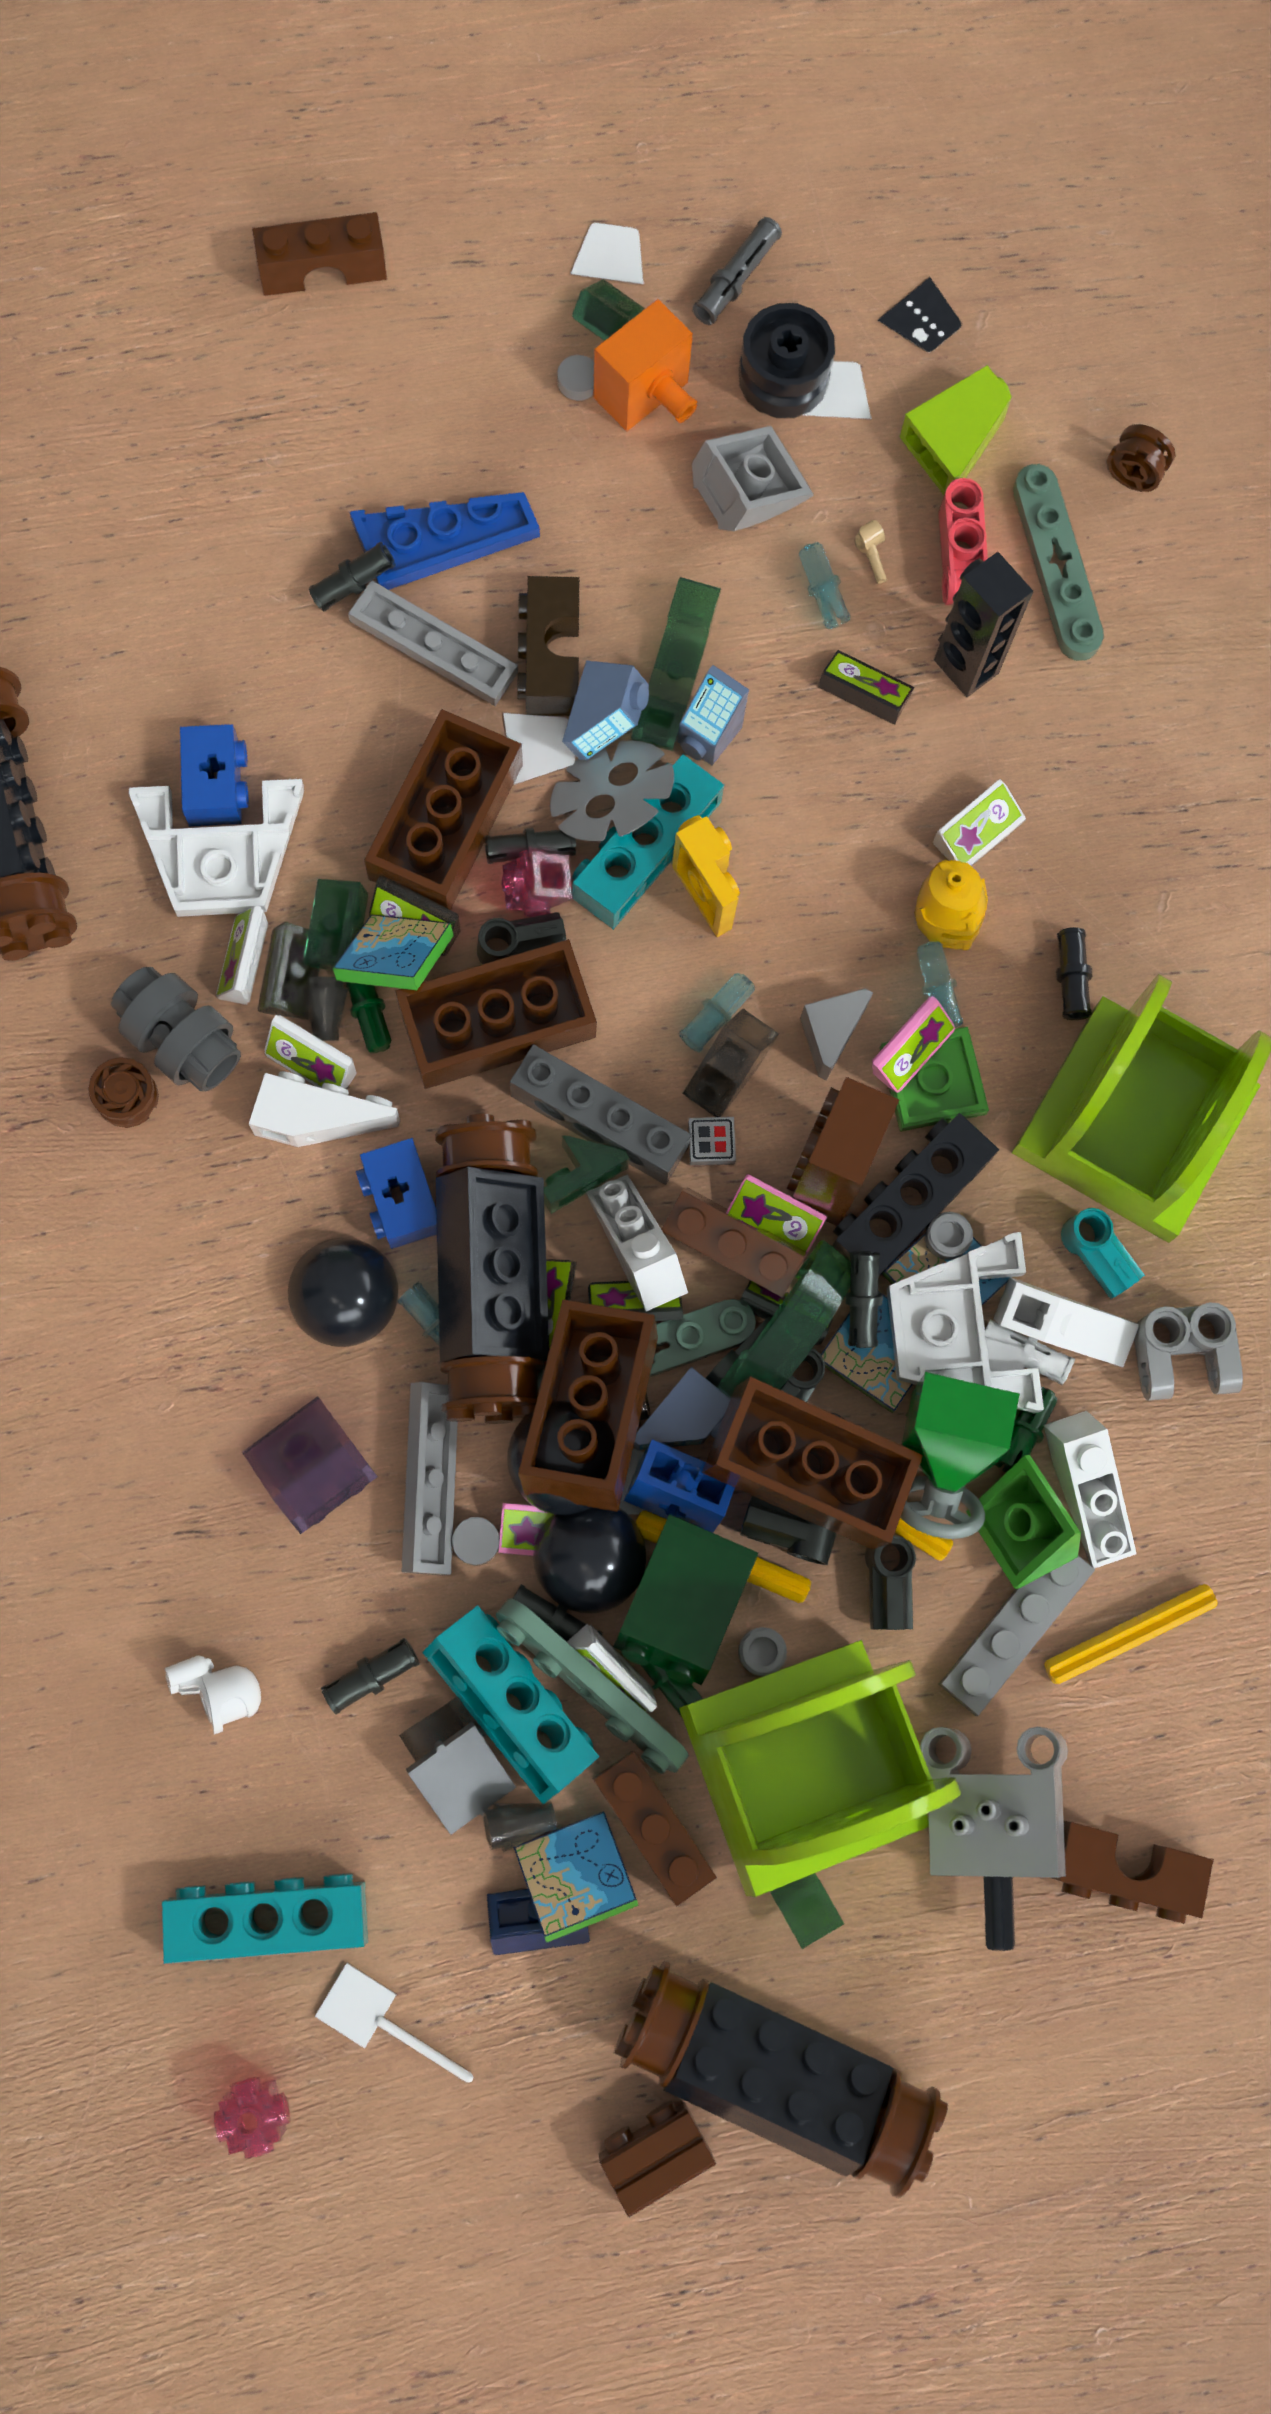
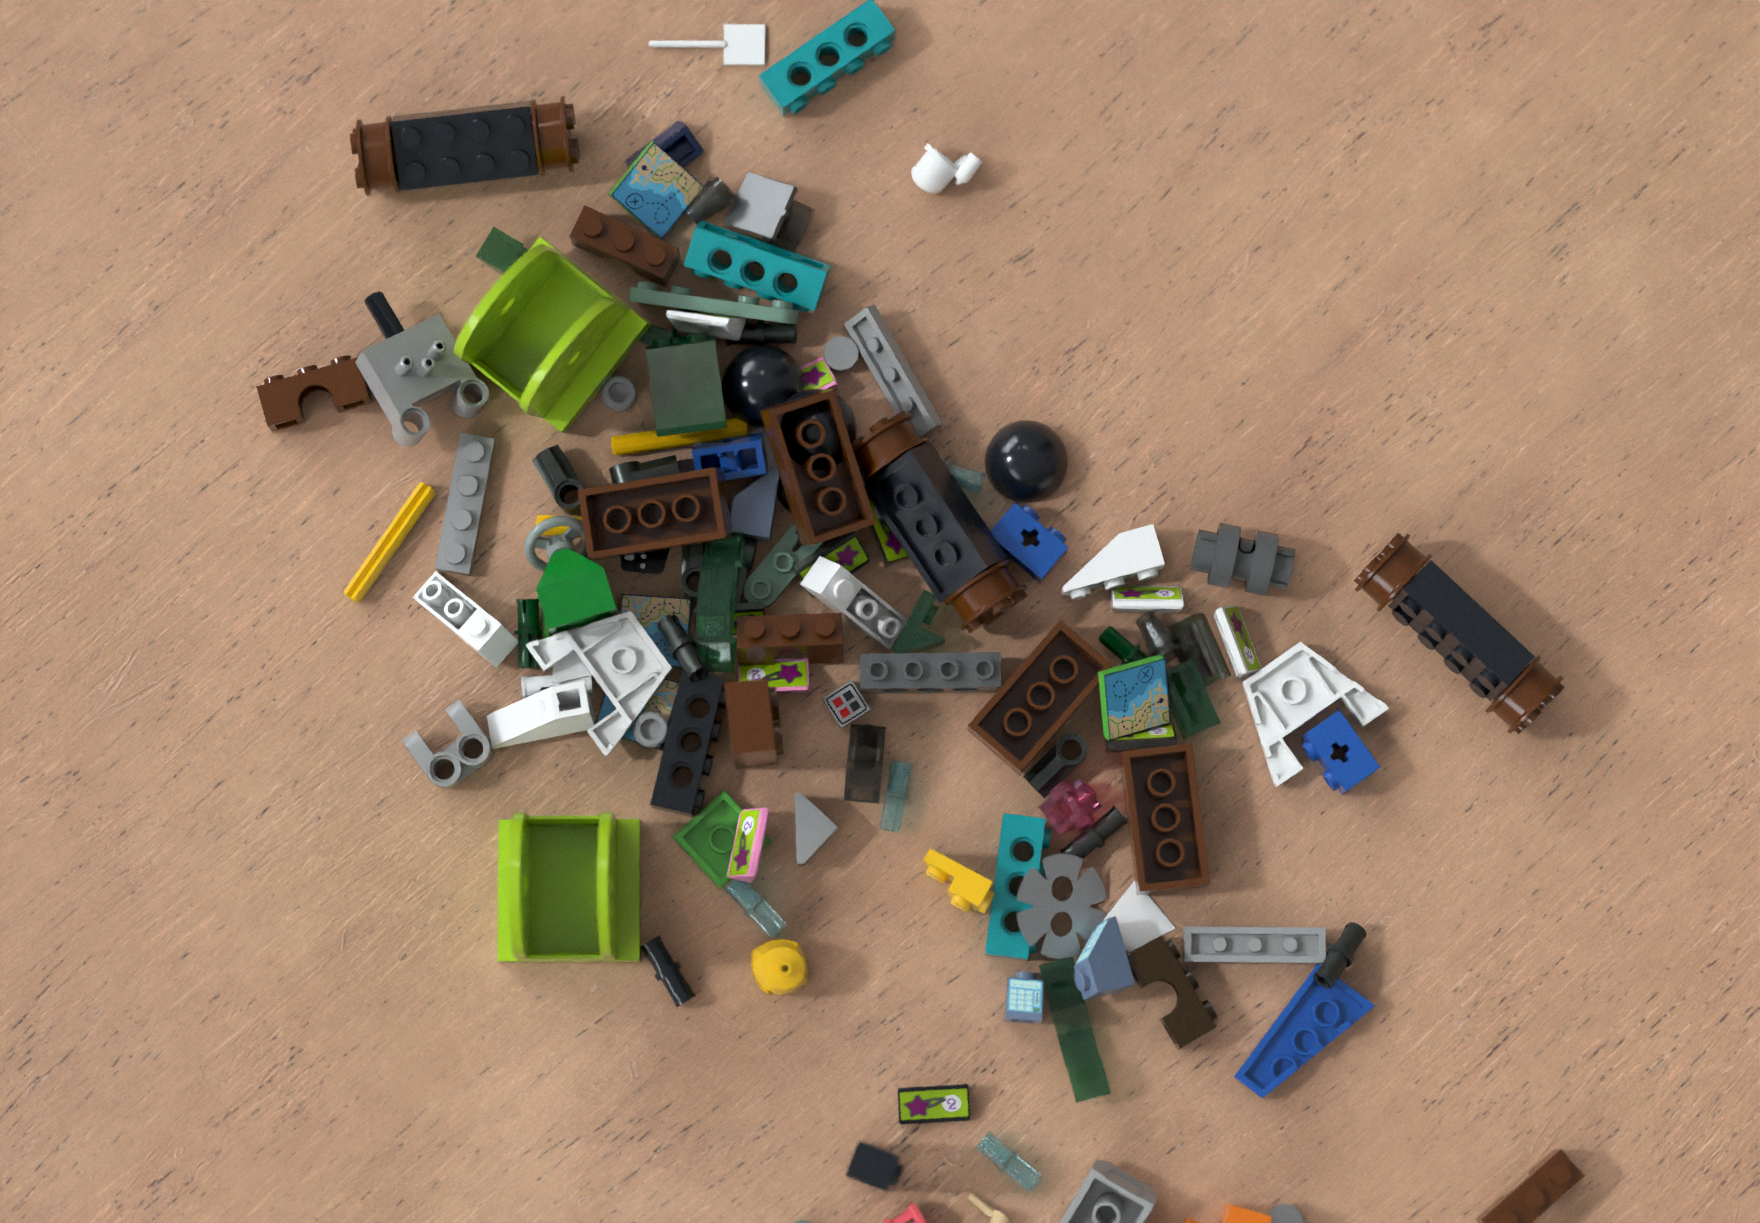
camera: 155 degrees right, 5 degrees up
(124, 1092) = (1251, 501): reddish brown wheel -> none
(309, 1465) = (975, 336): clear purple slope -> none
(370, 1676) = (855, 234): pearl dark grey pin -> none
(655, 2157) = (513, 63): reddish brown brick -> none
(980, 825) = (792, 1042): slope -> none
(1027, 1525) = (495, 565): bright green slope -> none
(1104, 1256) = (540, 780): teal piece -> none

